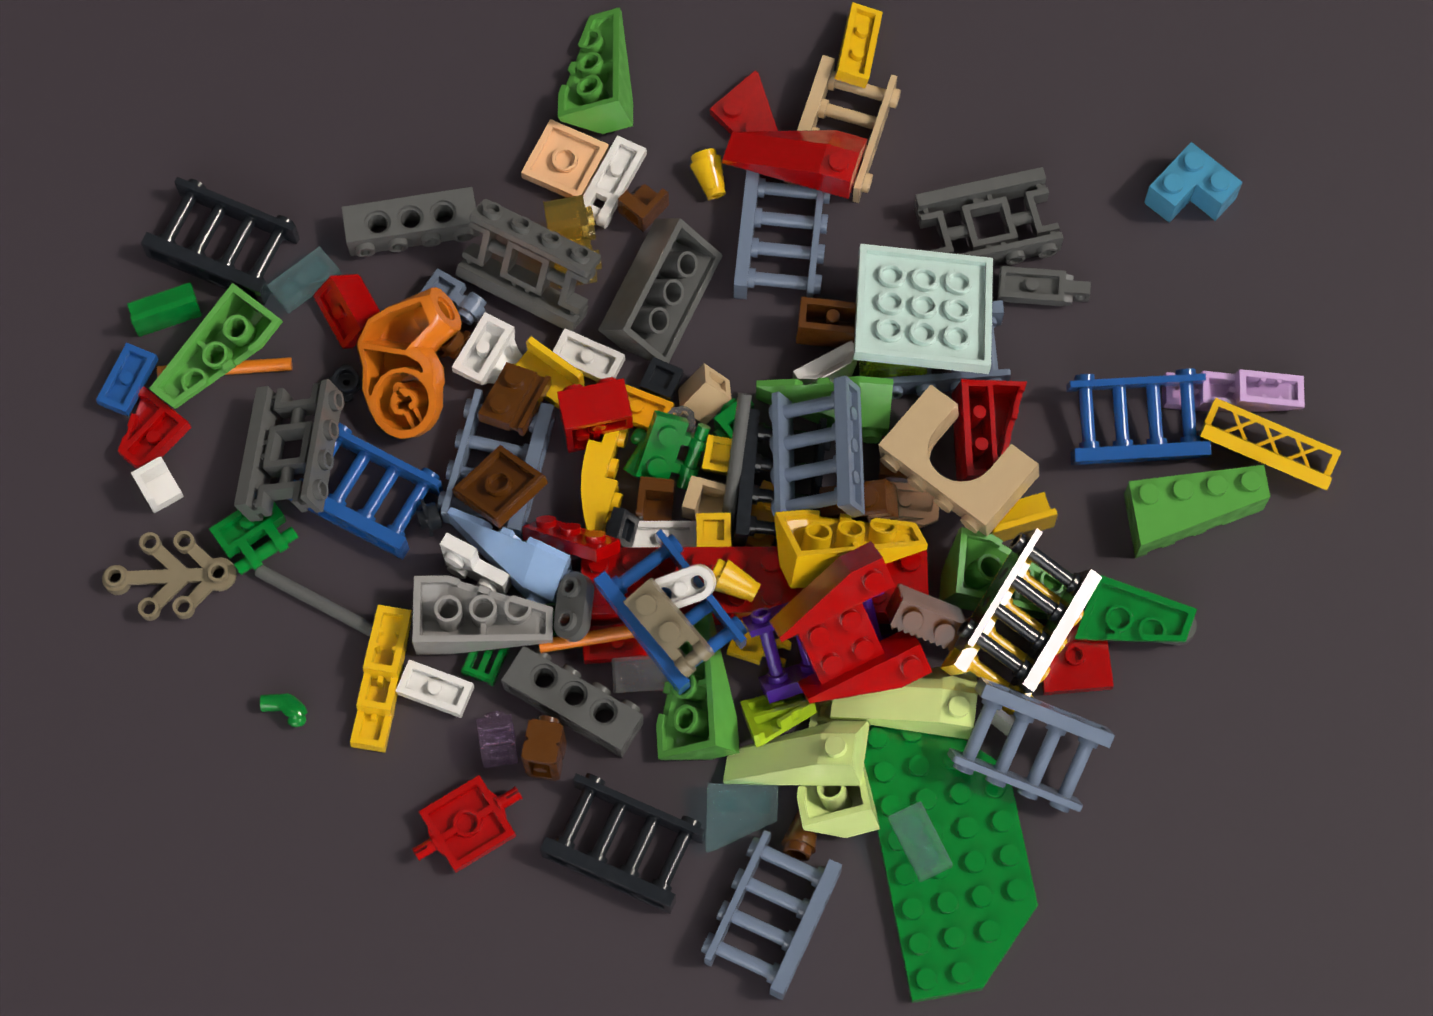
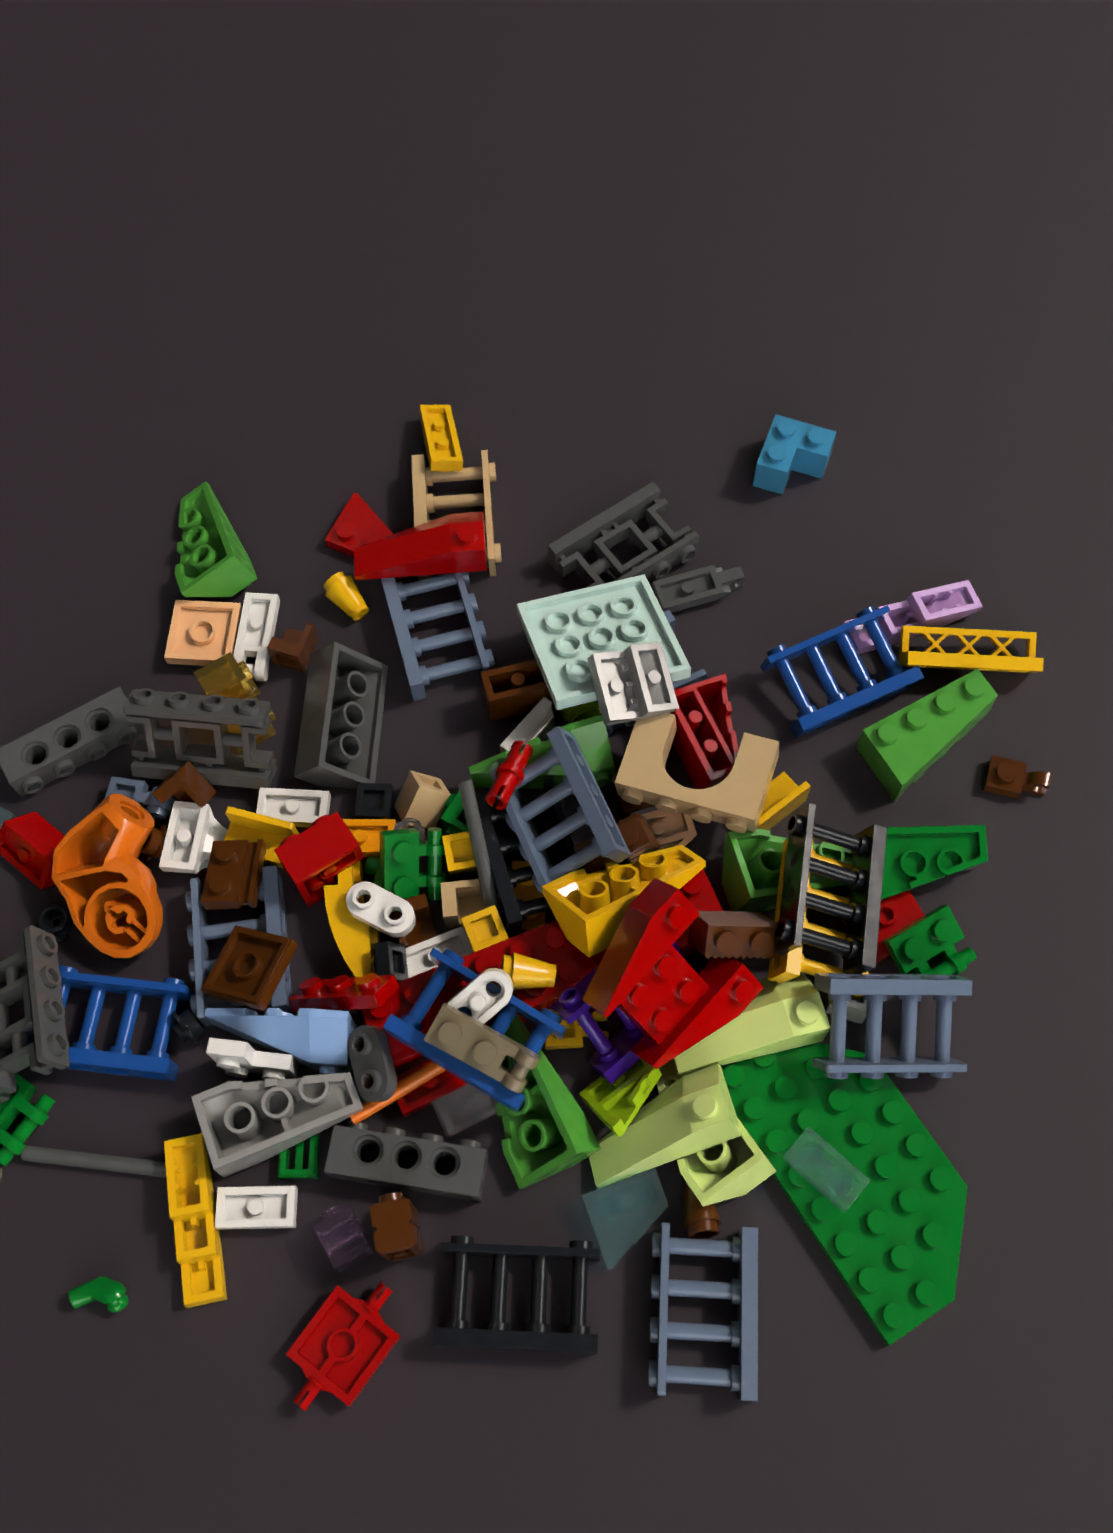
camera: 20 degrees left, 5 degrees down
(500, 303) = (186, 786): none -> reddish brown panel
(629, 477) = (378, 909): none -> white plate
(787, 402) = (509, 775): none -> red pin
(930, 361) = (632, 683): none -> light grey slope
(1102, 688) = (925, 939): none -> green plate
(1251, 576) = (1009, 778): none -> reddish brown plate

